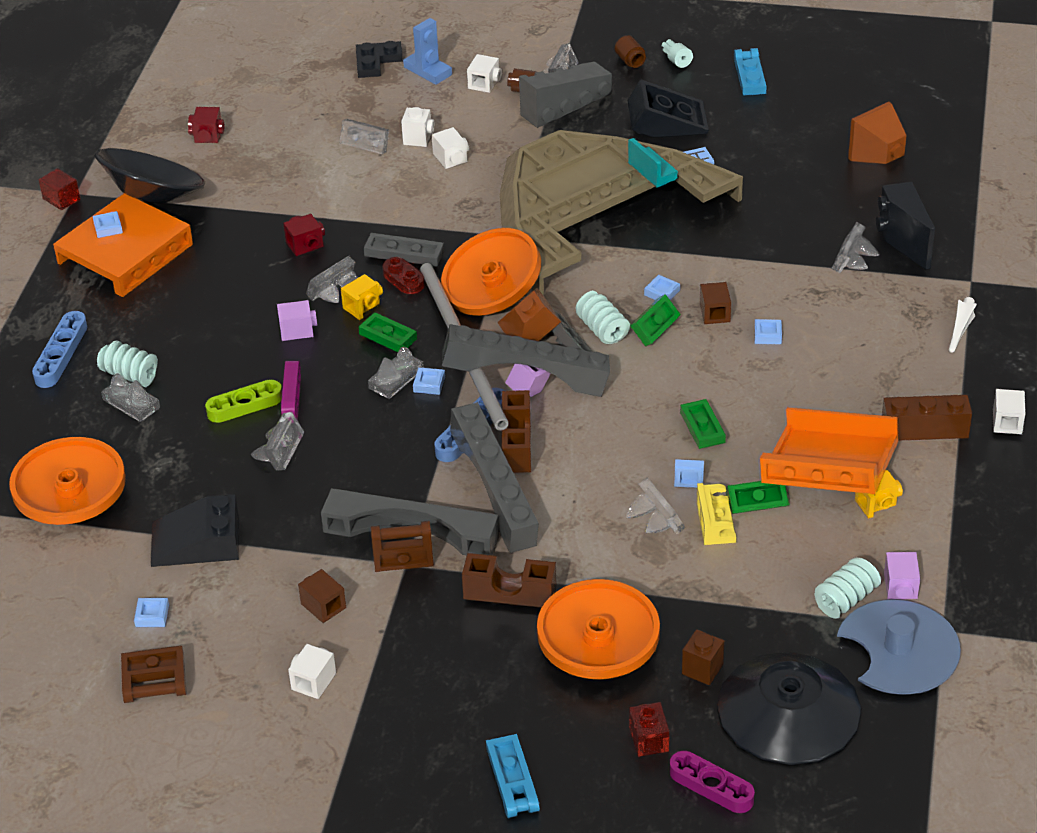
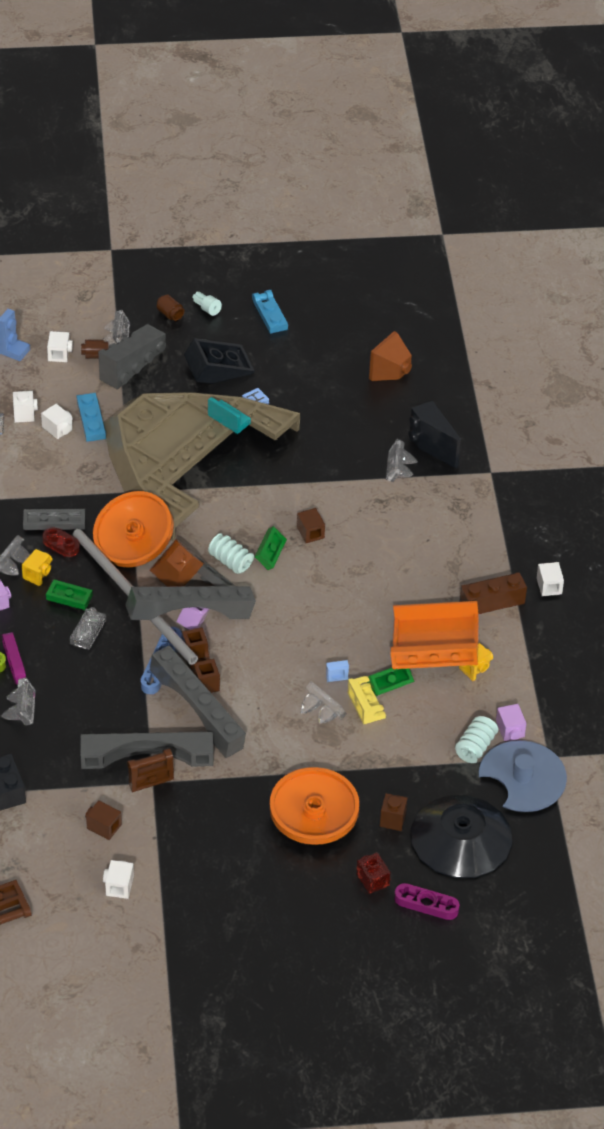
camera: 20 degrees left, 5 degrees up
(429, 381) = (115, 629): light blue tile -> none
(487, 582) = (253, 783): reddish brown arch -> none
(493, 151) = (91, 417): none -> dark azure plate
(512, 775) = (289, 926): dark azure plate -> none
(660, 286) = (264, 519): light blue tile -> none
(702, 423) = (333, 628): green plate -> none
(768, 331) = (355, 542): light blue tile -> none
(963, 318) = (494, 505): white piece -> none

